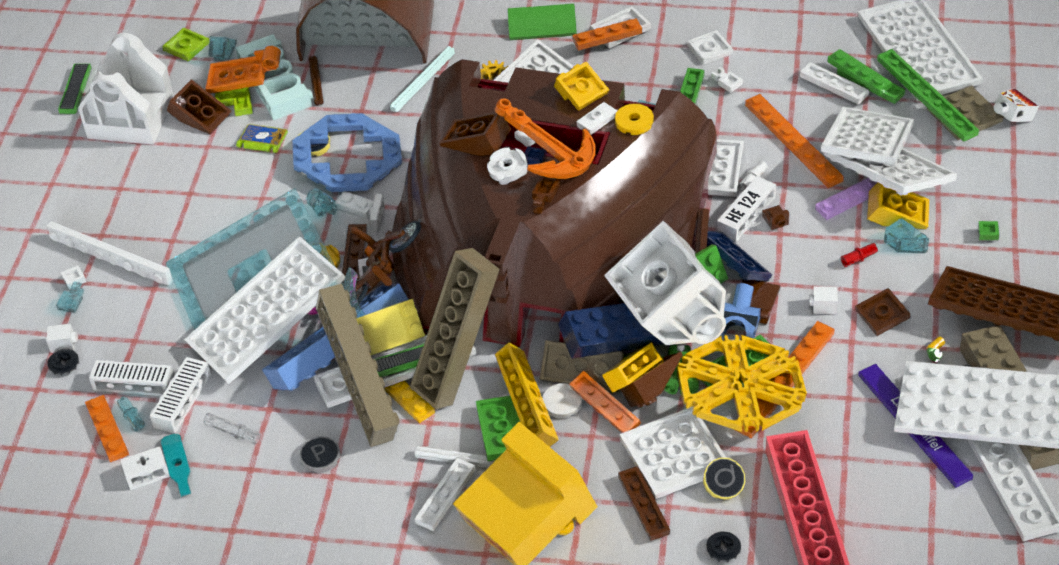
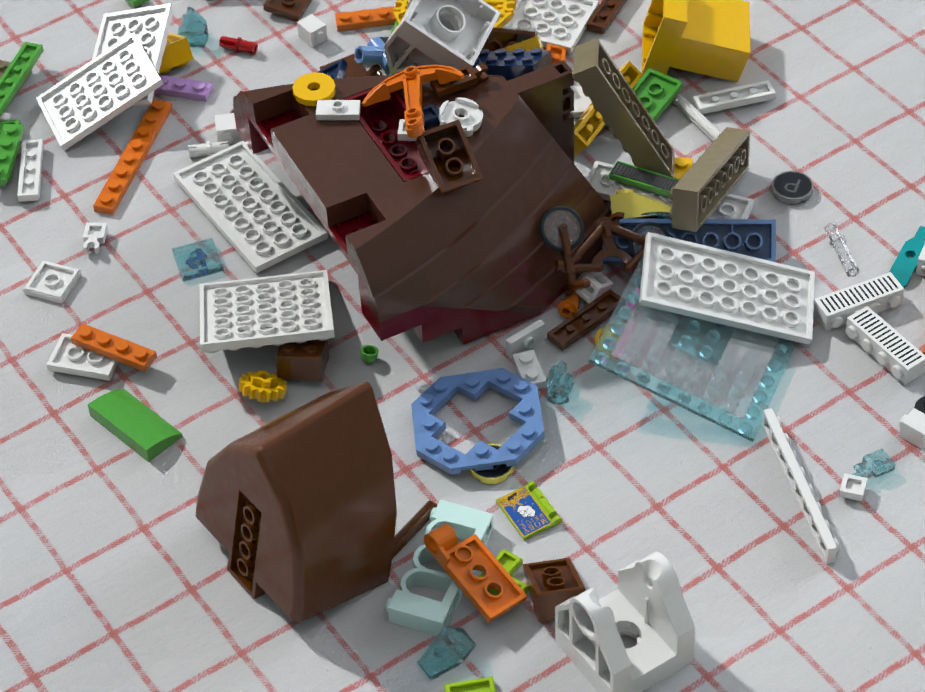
camera: 135 degrees left, 0 degrees up
(130, 413) = (913, 318): clear light blue axle -> none
(580, 85) = (313, 136): yellow plate -> none
(692, 83) = (140, 248): bright green plate -> none

